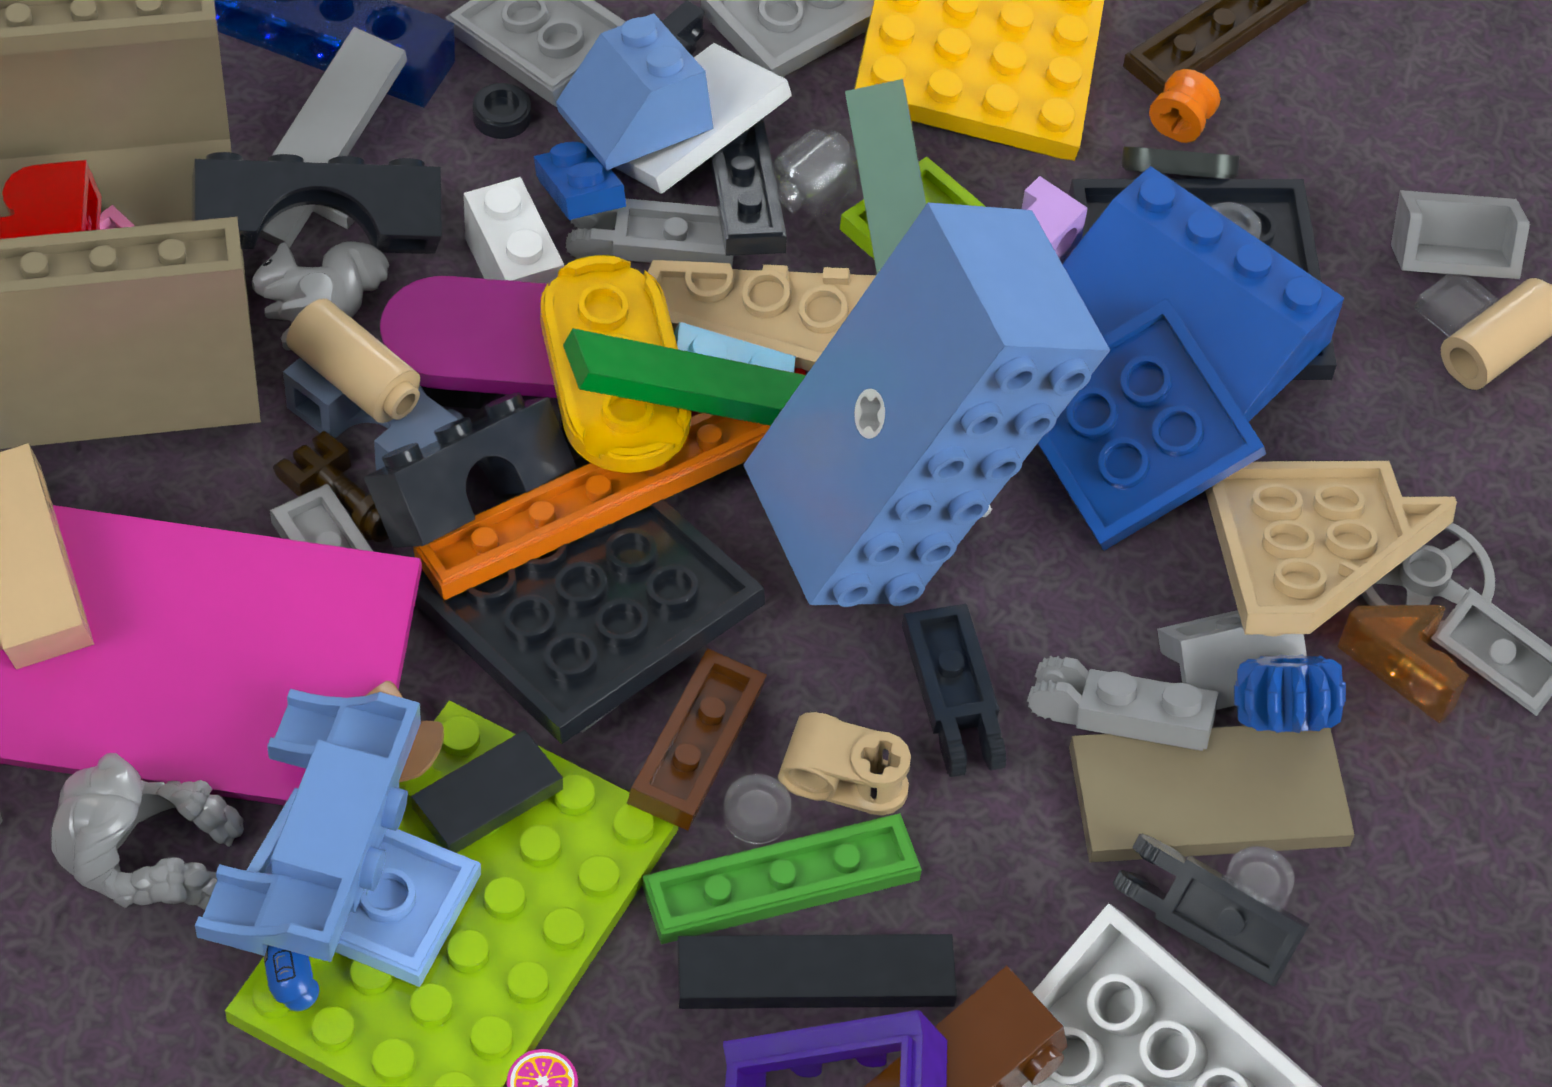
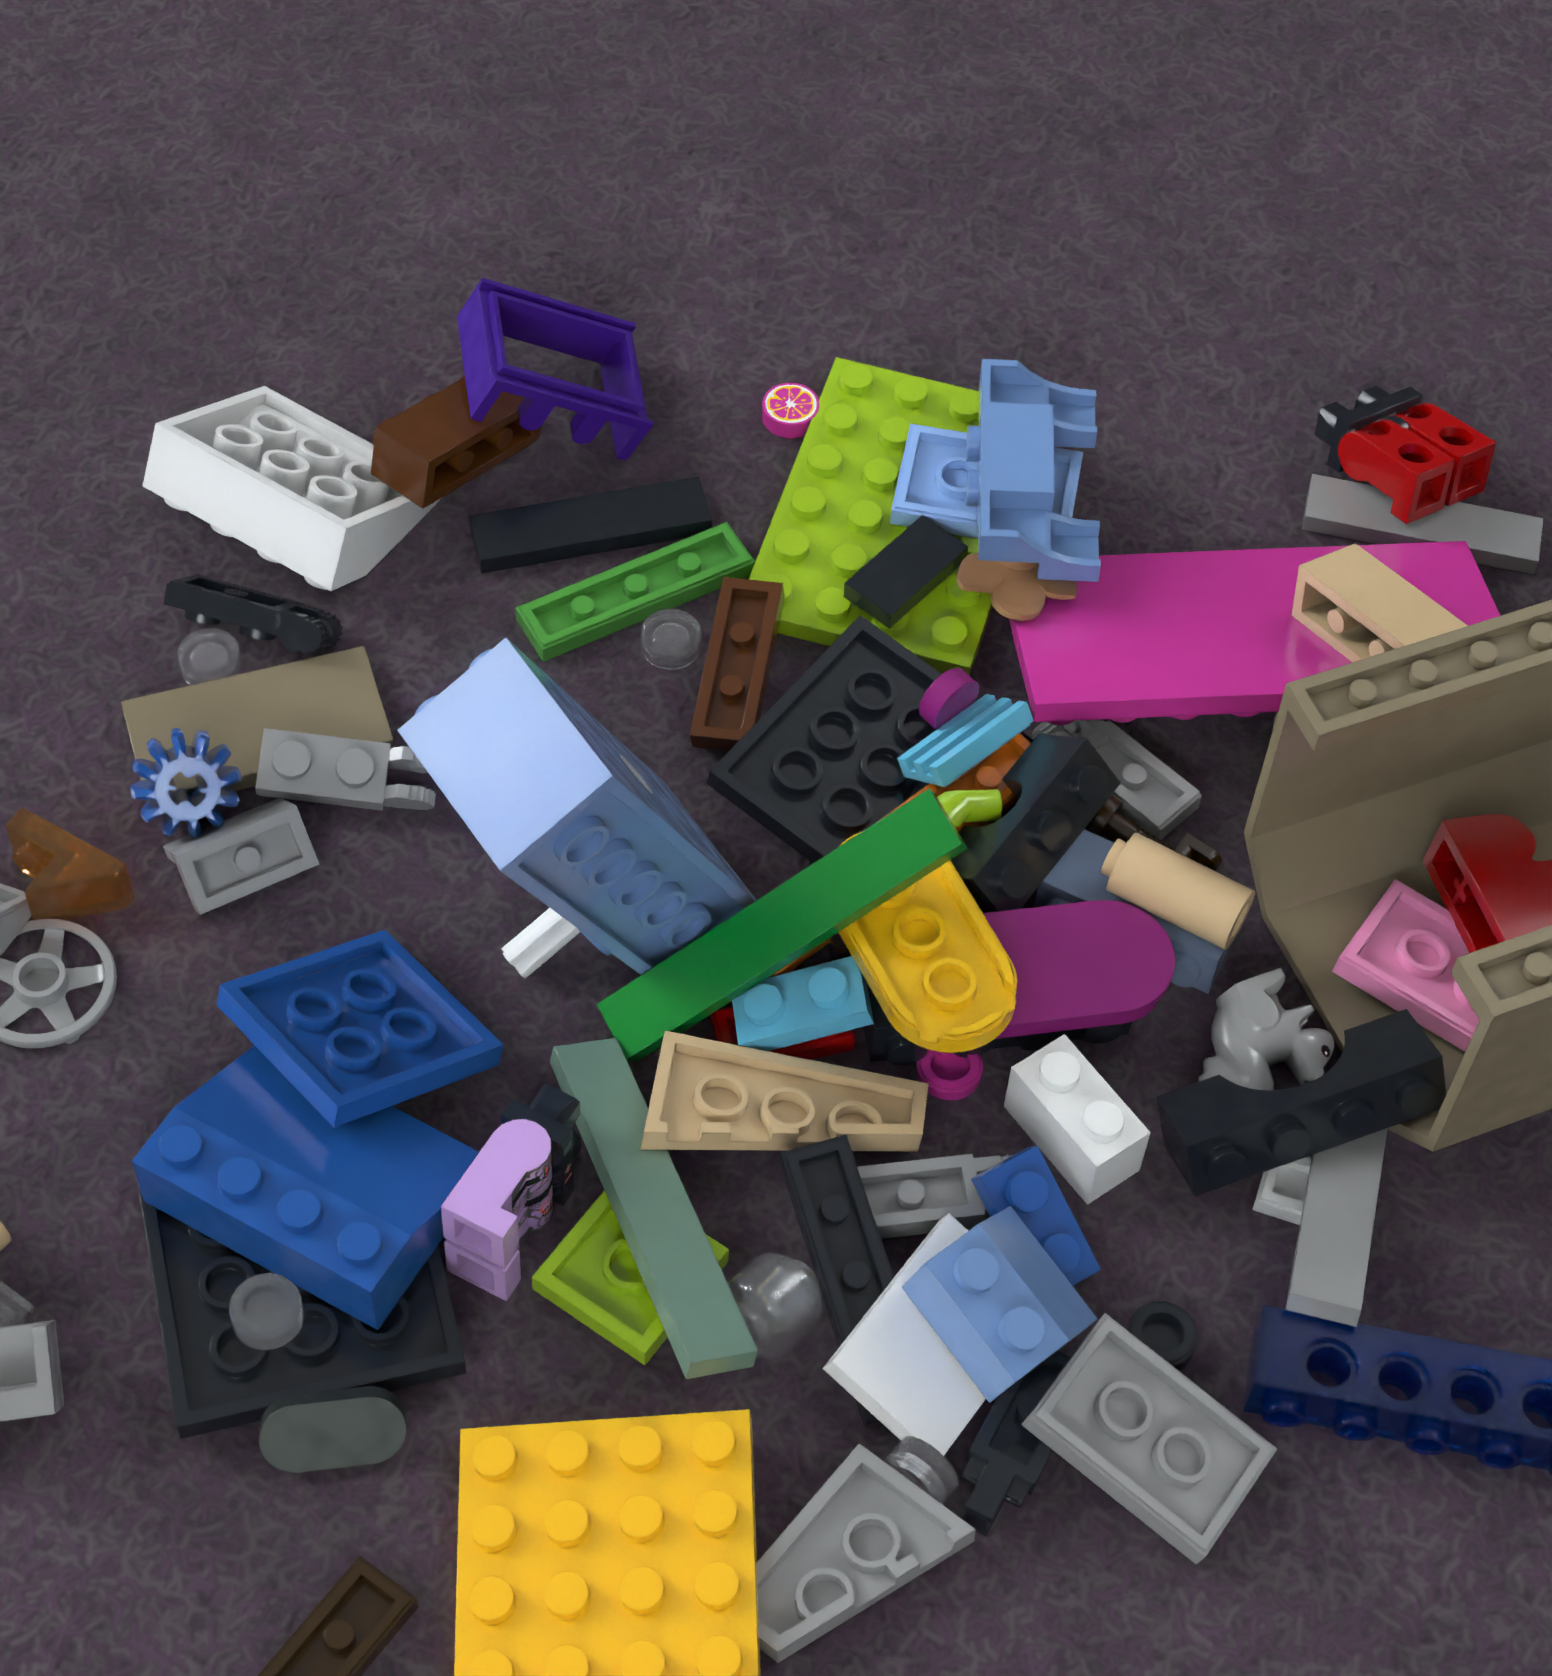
camera: 170 degrees right, 0 degrees up
(103, 807) = (1210, 483): light grey hair -> none
(500, 603) = (948, 697): none -> magenta tile
(537, 488) = (972, 805): none -> lime arm
(546, 541) = (965, 740): none -> medium azure tile
(729, 35) = (924, 1467): none -> clear tile
(842, 762) = (605, 669): tan piece -> none
(1184, 105) = (332, 1517): orange wheel -> none
(1315, 537) = (155, 945): tan wing -> none

